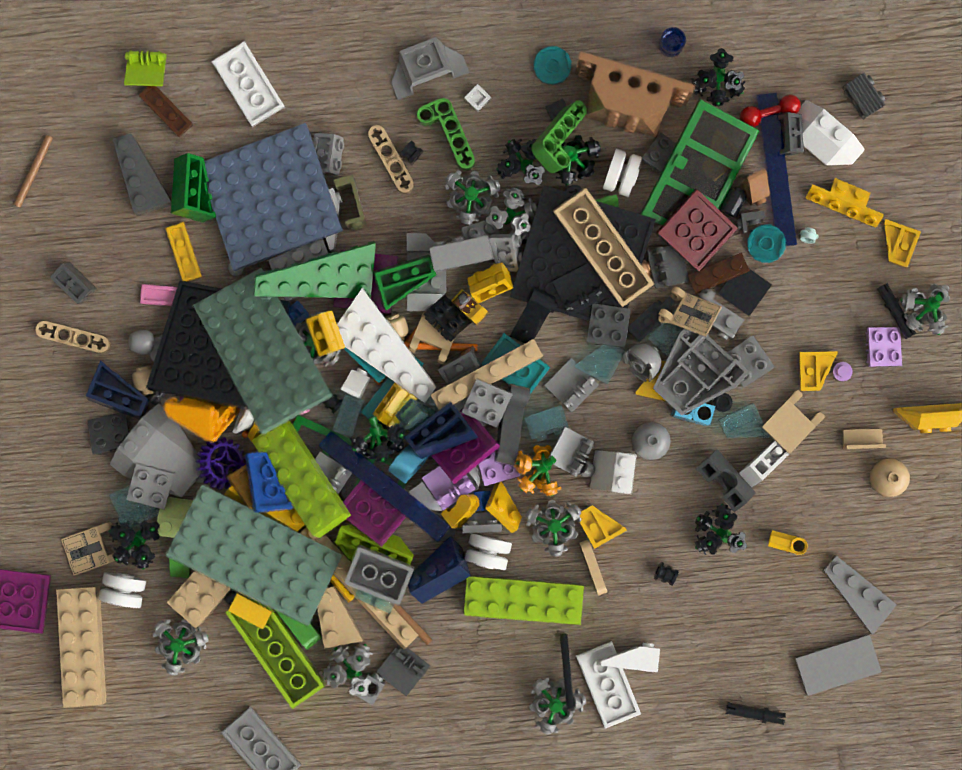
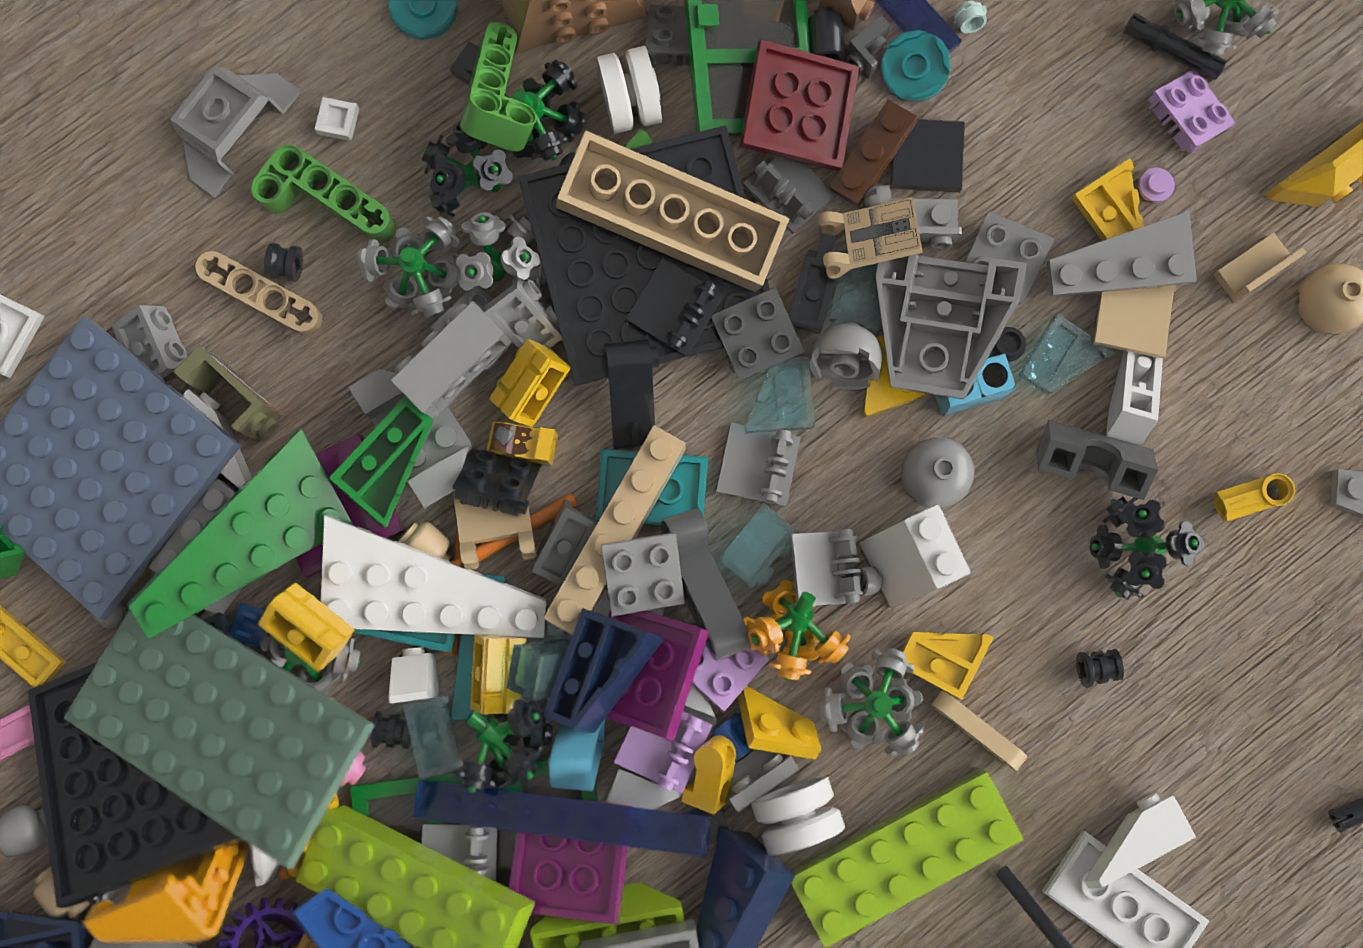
camera: 35 degrees left, 5 degrees down
(807, 401) = (1134, 260): none -> light grey wing

